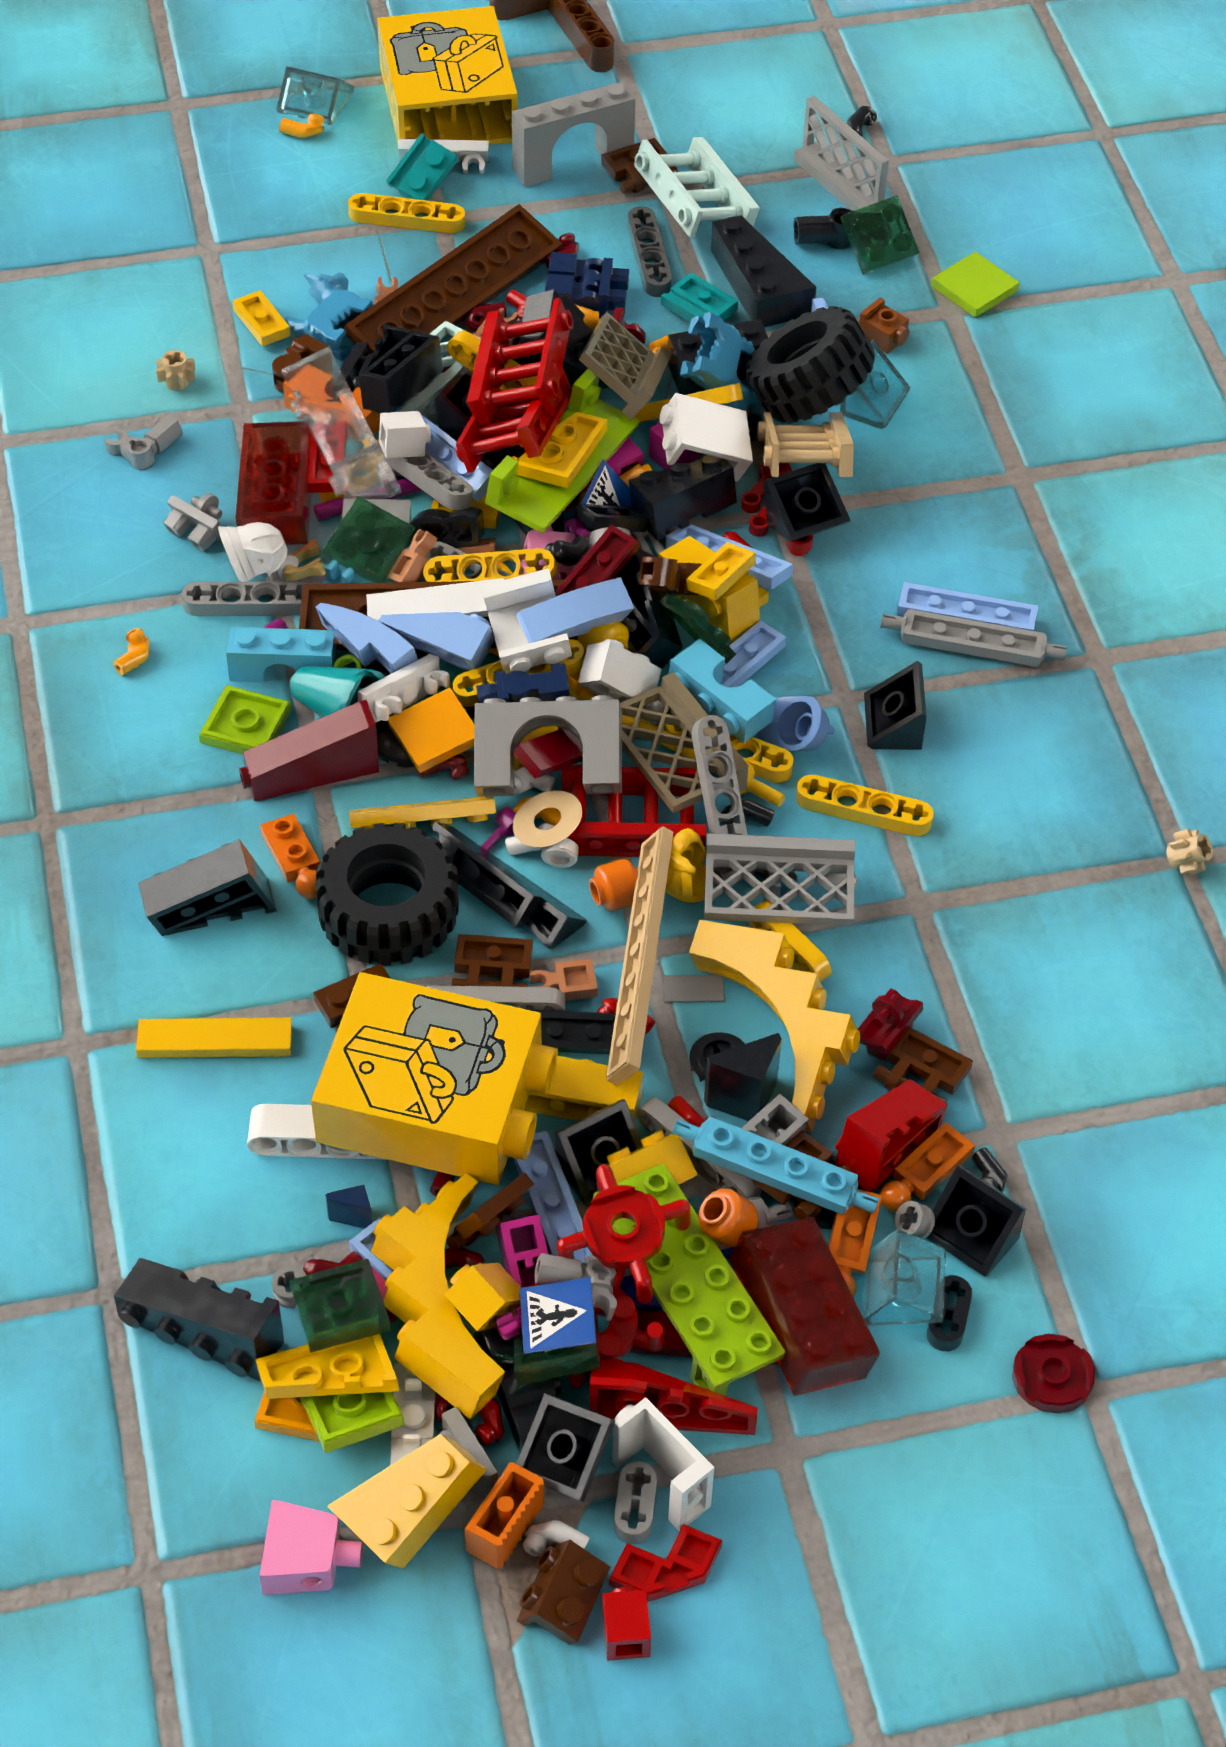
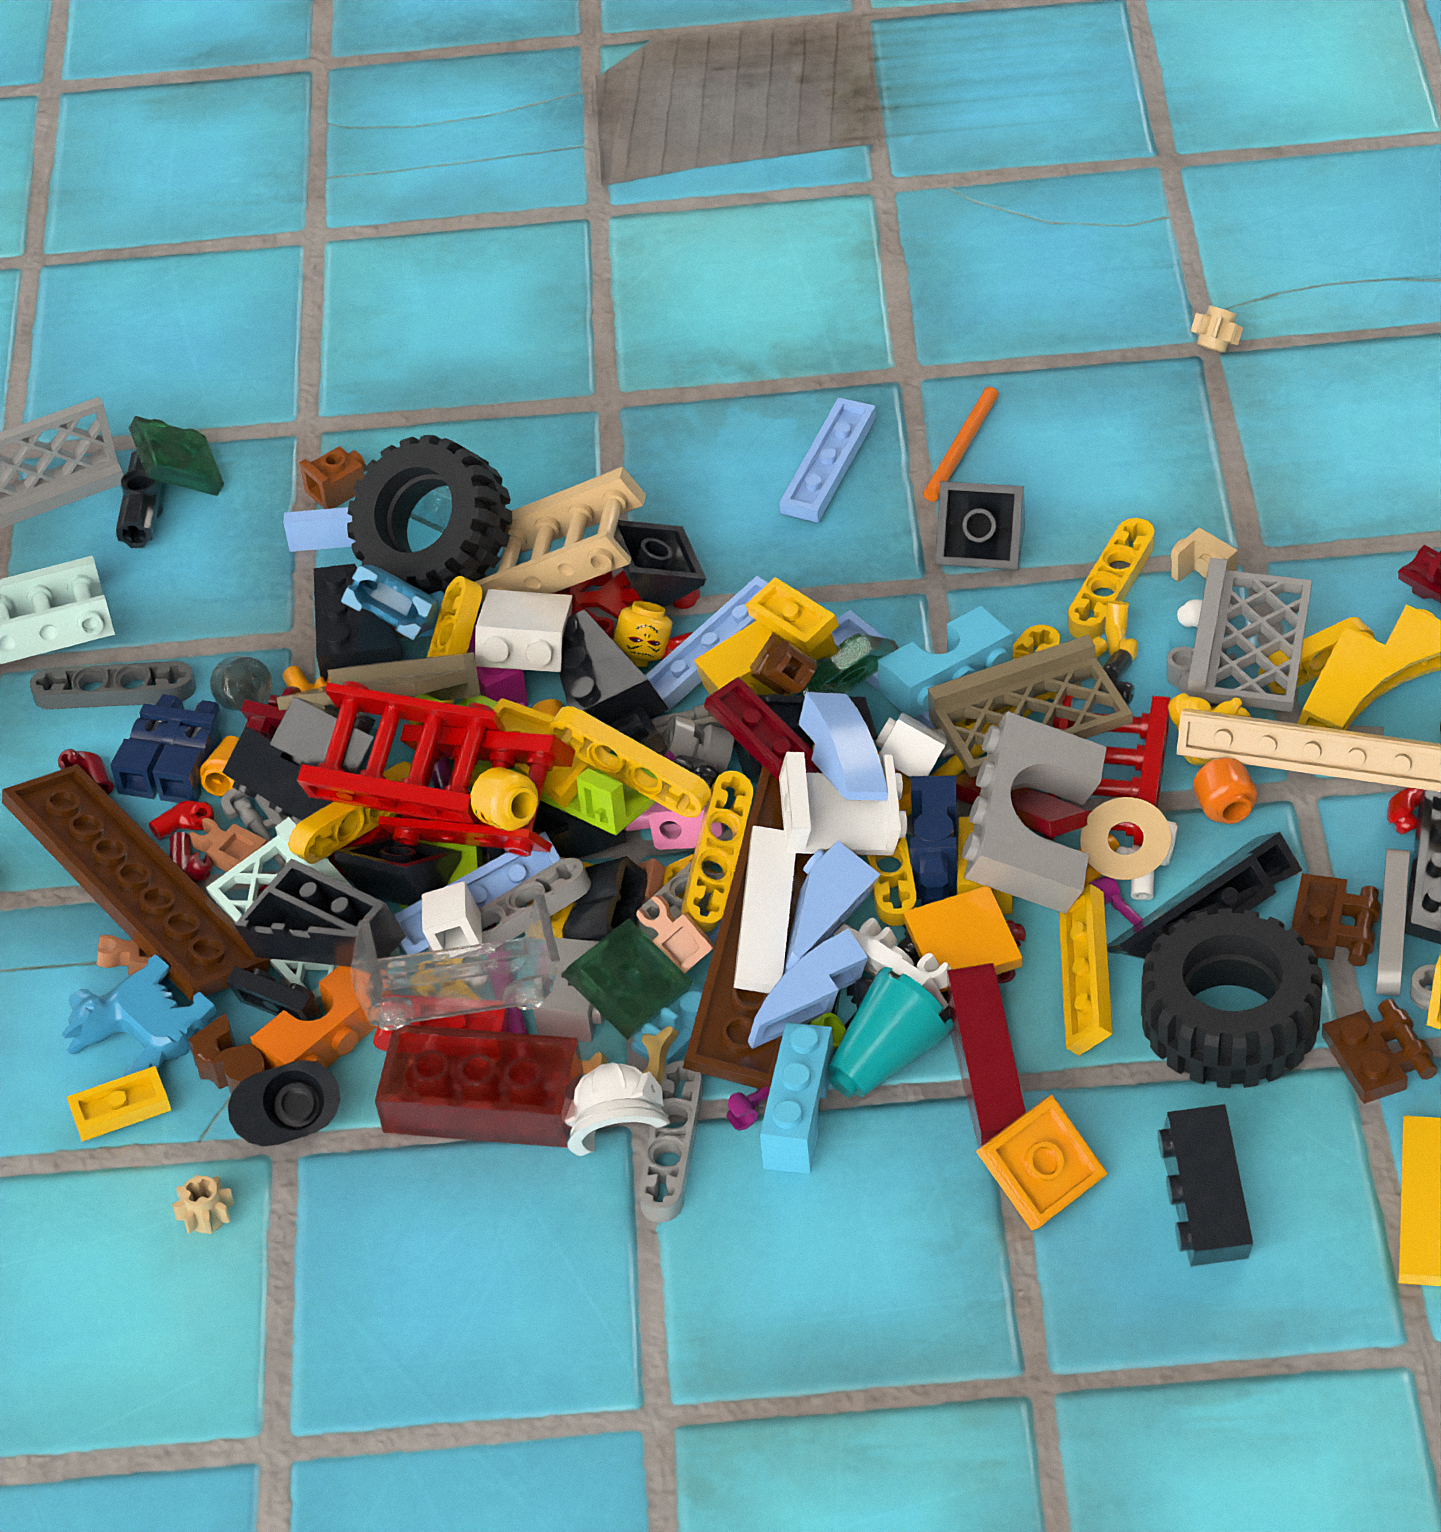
camera: 75 degrees left, 5 degrees down
(137, 652) = (750, 1267): light orange arm -> none
(142, 450) = (352, 1250): light grey bar -> none
(198, 516) = (505, 1199): light grey hips -> none
(225, 794) = (1041, 1162): none -> light orange tile
(244, 720) = (895, 1153): lime tile -> none
(253, 389) = (284, 1103): none -> black piece
(292, 853) = (1135, 1105): orange plate -> none
(481, 420) = (504, 798): none -> yellow head
(537, 488) = (687, 790): none -> yellow beam
(572, 977) = (1359, 848): nougat plate -> none
(648, 308) = (240, 680): none -> clear smoke head
(696, 297) = (236, 633): teal plate -> none
(712, 786) = (1108, 663): light grey beam -> none
(734, 514) = (643, 632): none -> yellow head
(759, 274) = (201, 577): black wedge -> none
(795, 811) = (1117, 627): none -> yellow arm
(797, 724) = (1007, 596): medium blue piece -> none
(893, 859) = (1195, 553): none -> tan bracket
(973, 637) = (872, 459): light grey plate -> none
(975, 284) = (274, 395): lime tile -> none
(1012, 696) = (961, 443): none -> orange bar

